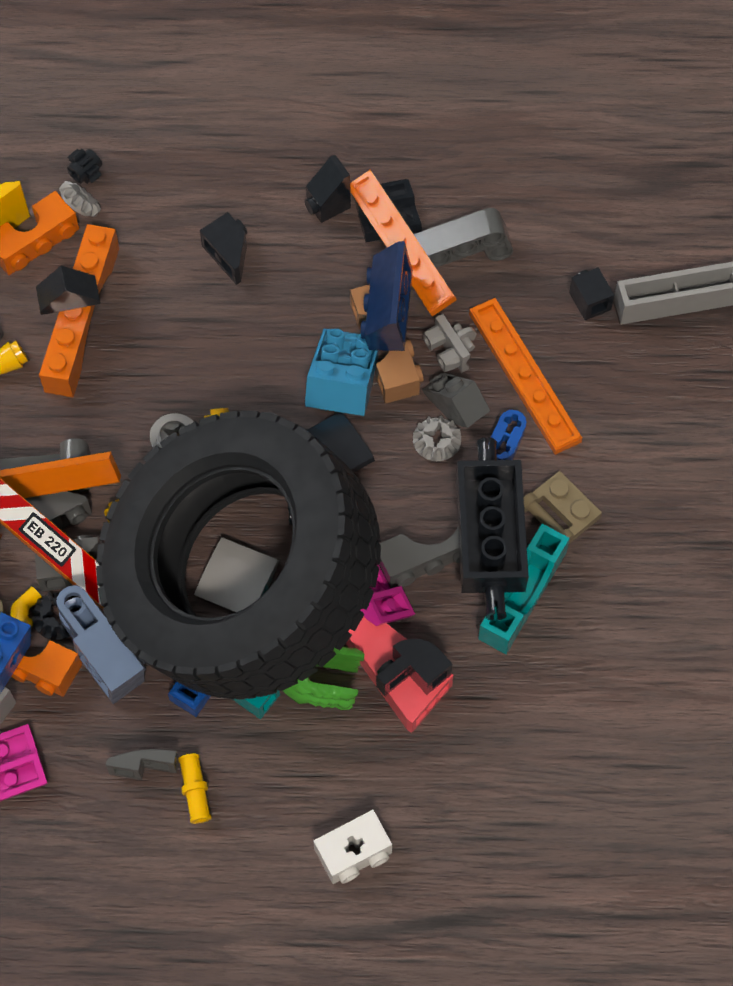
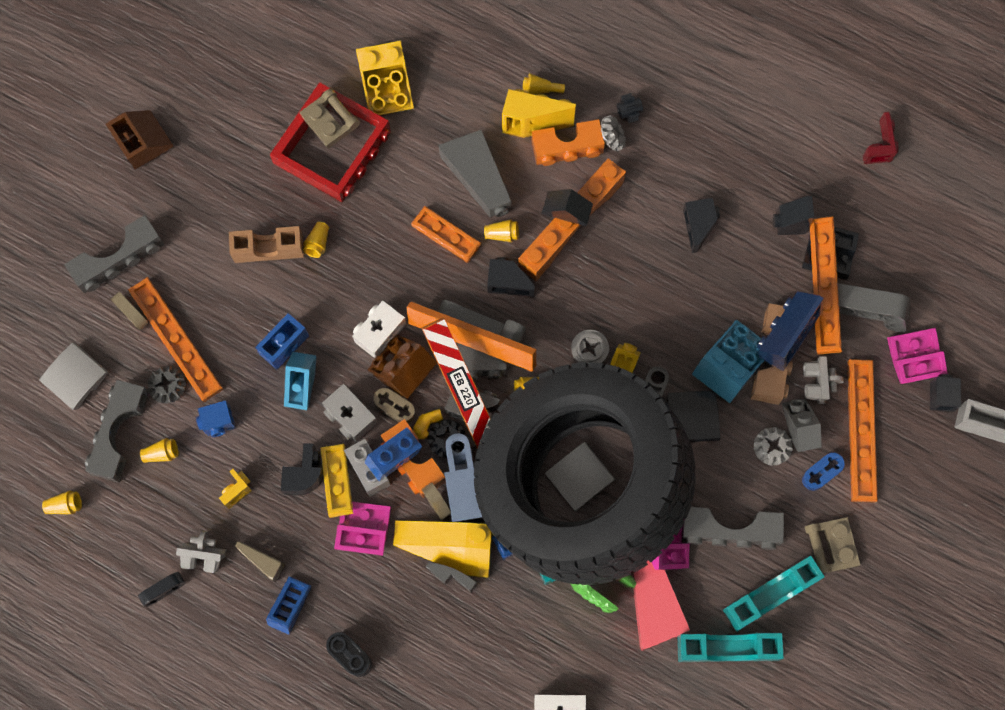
camera: 30 degrees right, 10 degrees up
(40, 406) = (508, 278): none -> black slope
(64, 917) = (349, 654): none -> black brick
(80, 686) = (436, 501): none -> dark tan beam
(130, 722) = (447, 543): none -> yellow wedge
(194, 788) = (476, 611): yellow pin -> none
(391, 82) = (877, 152): none -> dark red bracket
(419, 661) = (671, 611): black brick -> none
(483, 686) = (730, 647): none -> teal arch
(491, 527) = (773, 541): black brick -> none
(539, 271) = (917, 355): none -> dark pink slope

